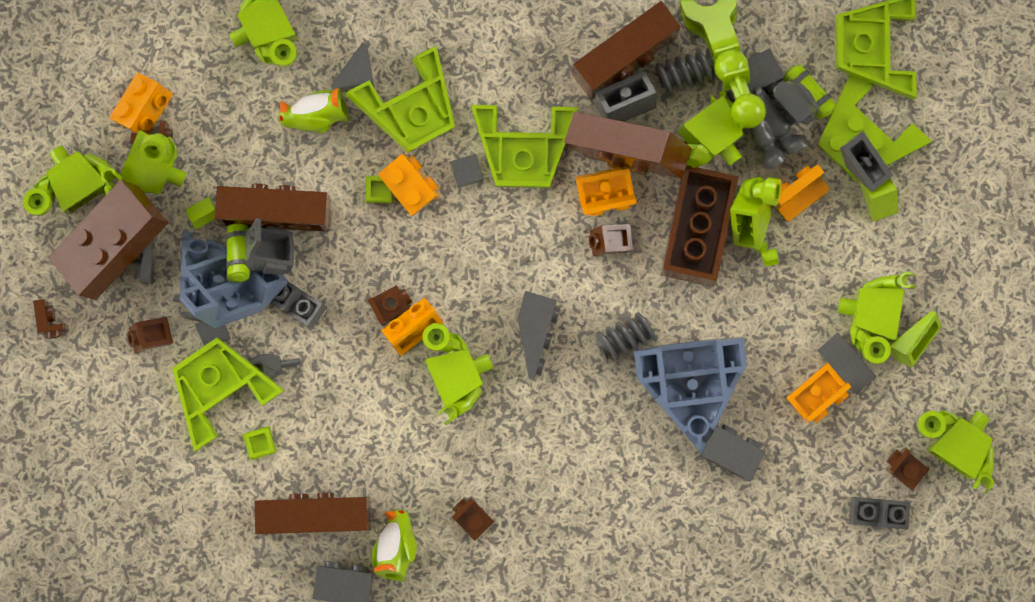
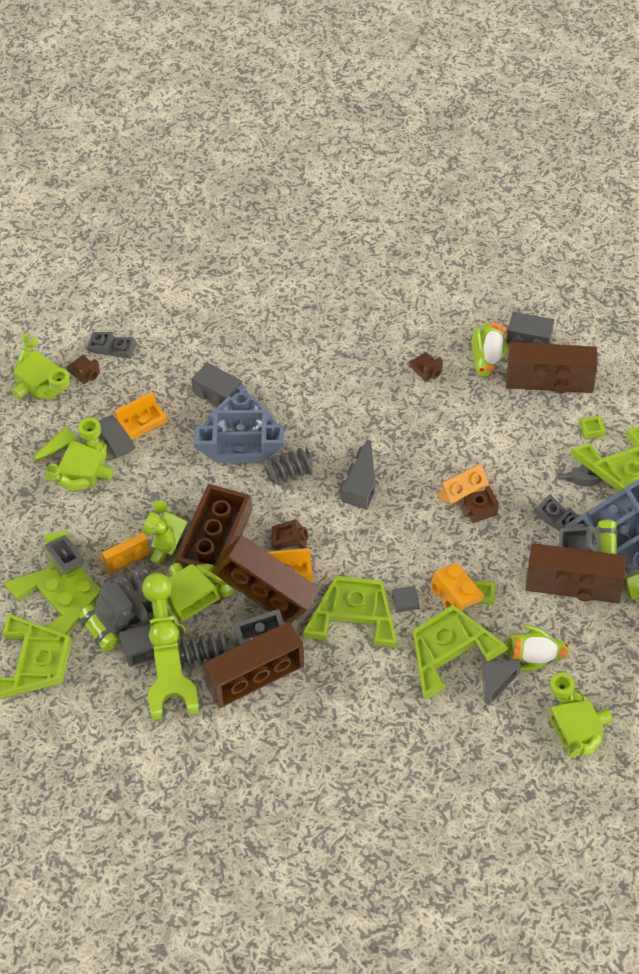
camera: 170 degrees left, 30 degrees down
(456, 372) = (430, 451): lime torso -> none

